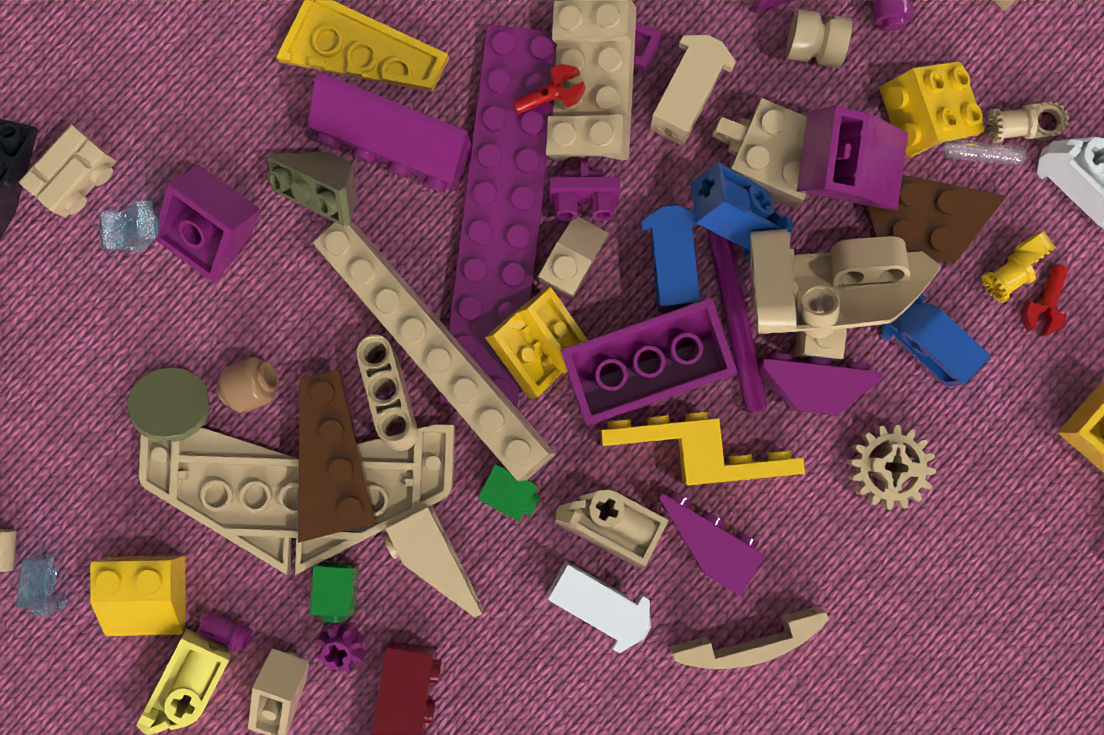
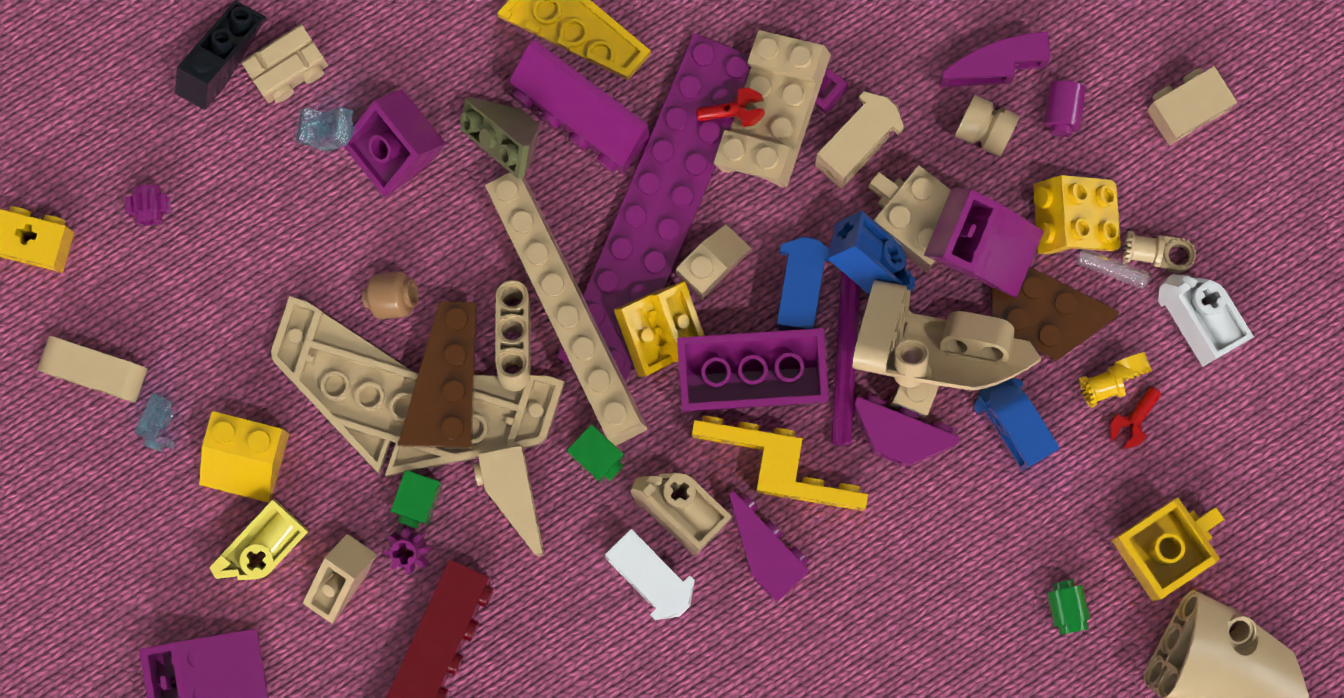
camera: 20 degrees right, 5 degrees down
(169, 404) = (316, 293): olive tile -> none
(225, 631) = (308, 509): magenta pin -> none
(584, 187) = (738, 202): magenta hips -> none
(798, 629) = (821, 648): tan slope -> none
(891, 481) = (963, 533): tan gear -> none
(1037, 515) = (1068, 607): none -> green brick

